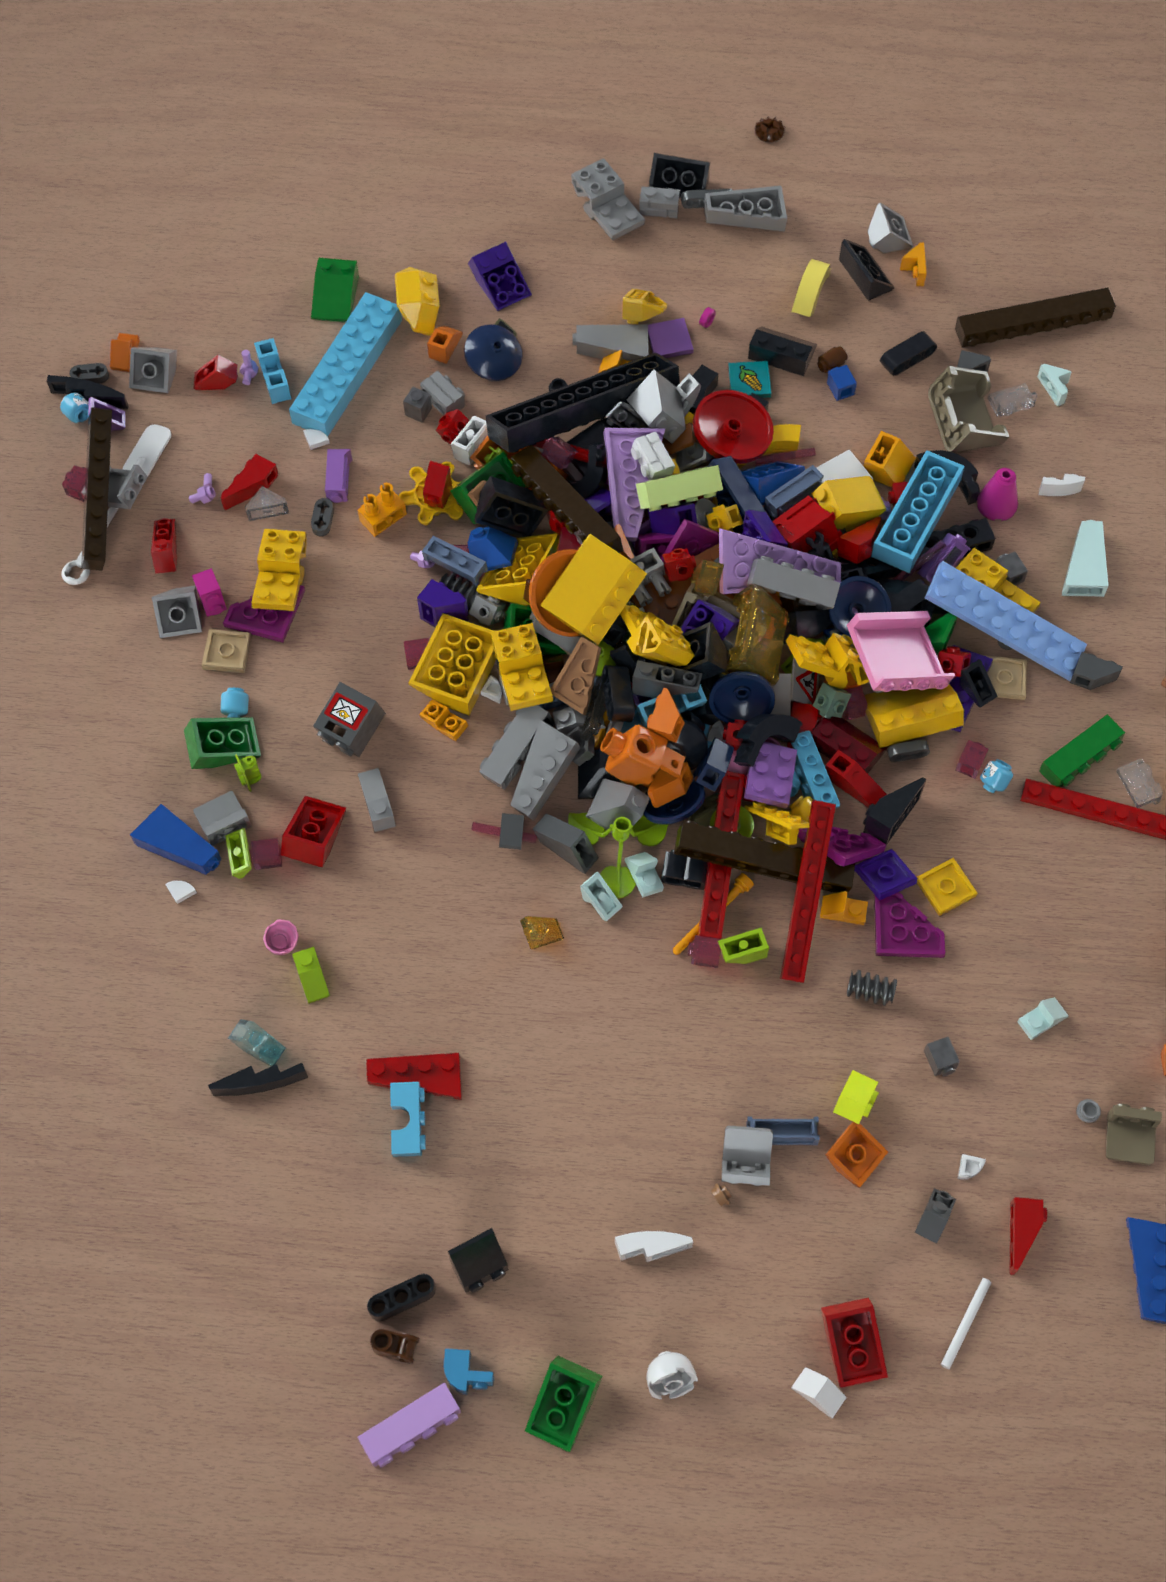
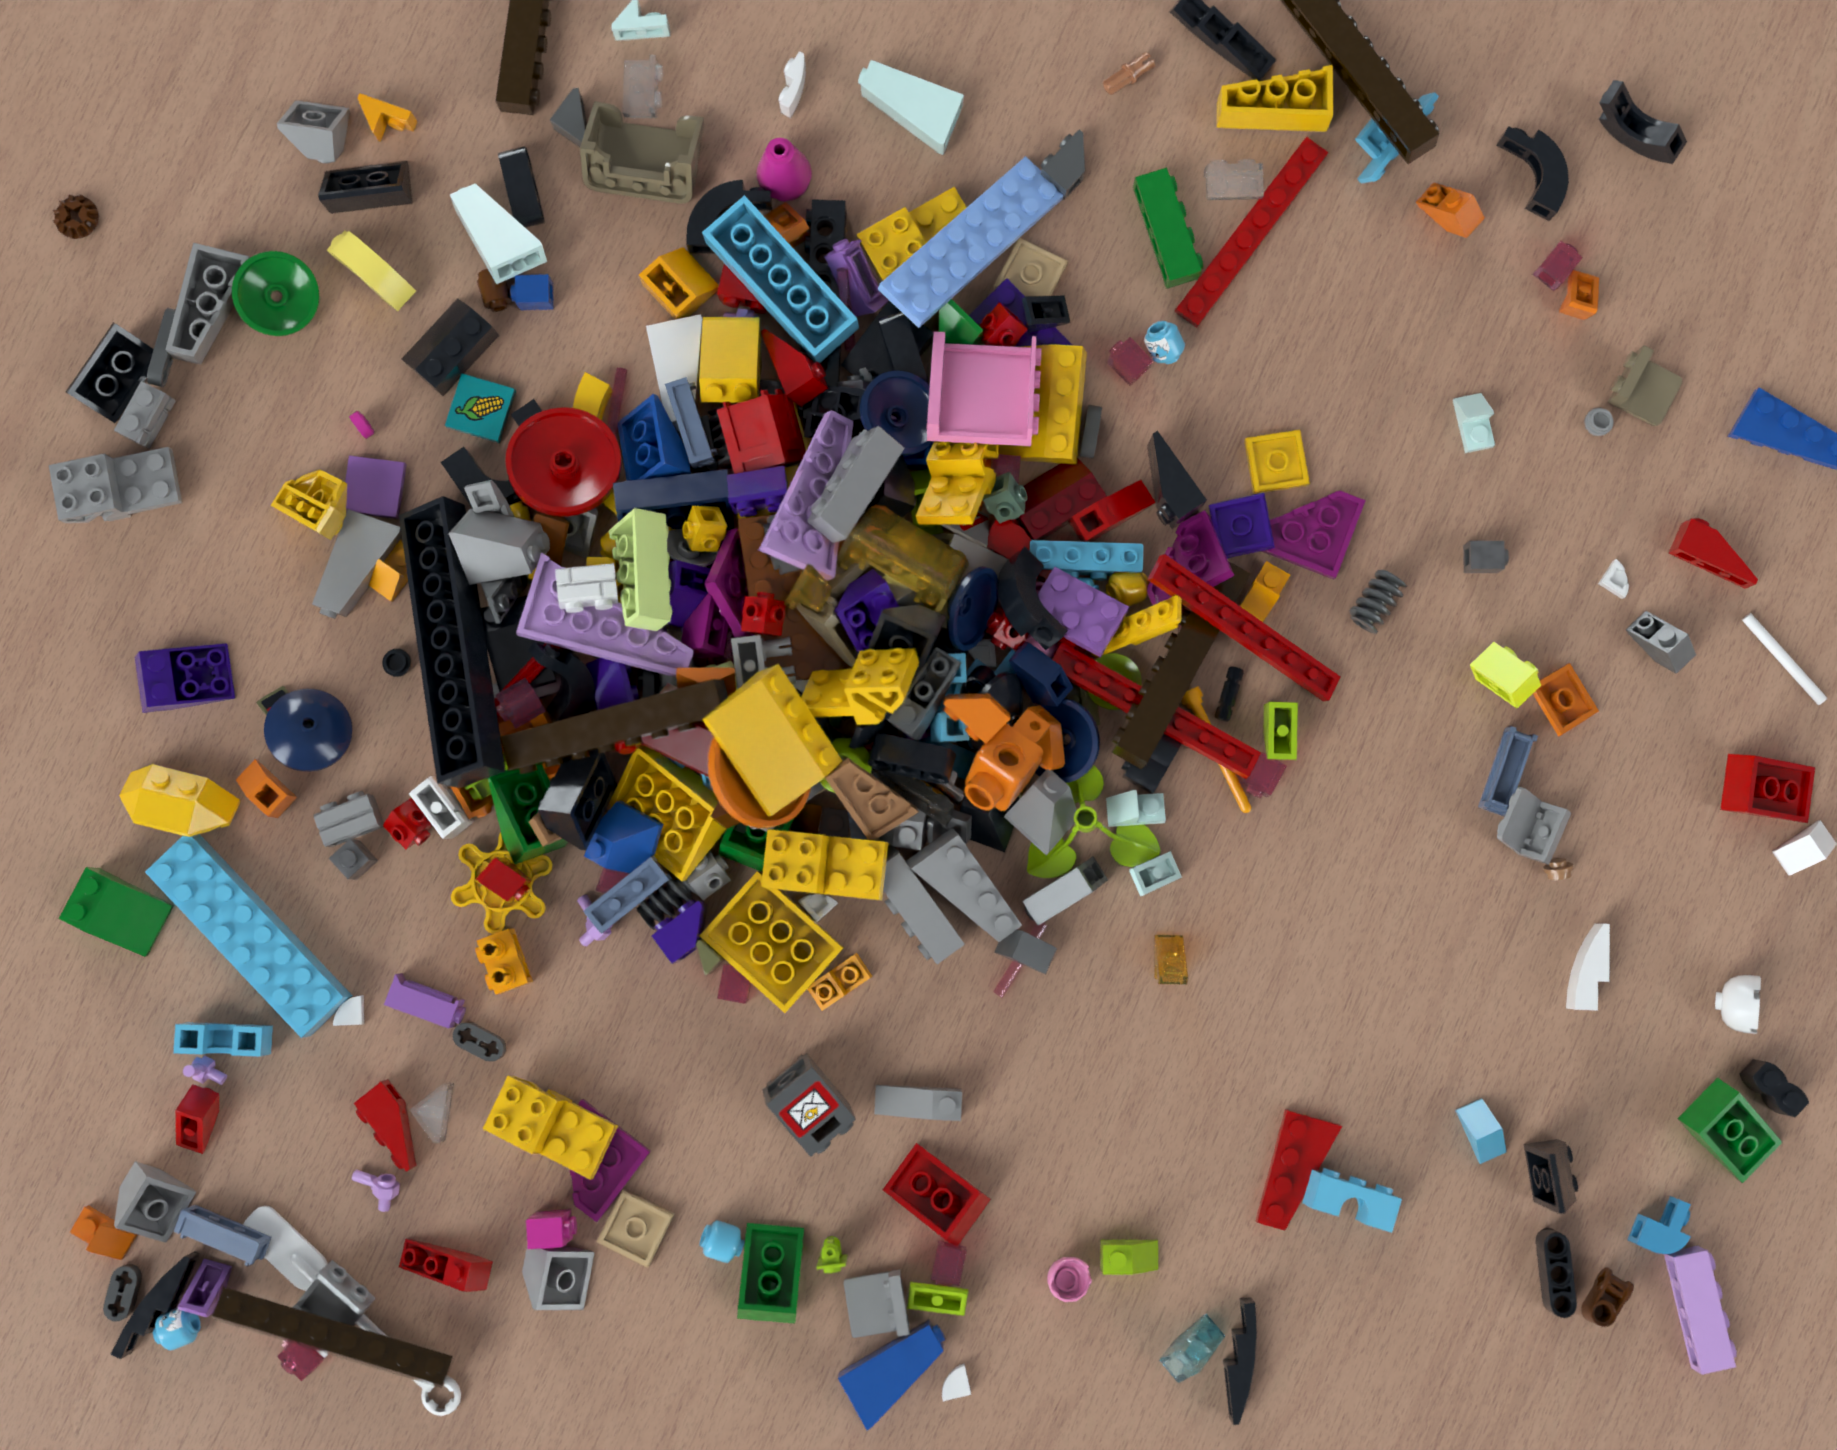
camera: 70 degrees left, 20 degrees up
(144, 412) = (222, 1234): none -> sand blue container
(428, 623) = (709, 957): none -> olive slope
(493, 1205) = (1482, 1130): none -> medium azure slope
(614, 1420) = (1774, 1088): none -> black brick
(757, 909) = (1229, 693): none -> black axle
(774, 231) = (273, 273): none -> green dish
(819, 547) = (800, 427): black plate -> none
(866, 345) = (497, 235): none -> light aqua slope
(960, 513) = (788, 224): none -> orange slope
(1016, 569) = (888, 199): flat silver brick -> none

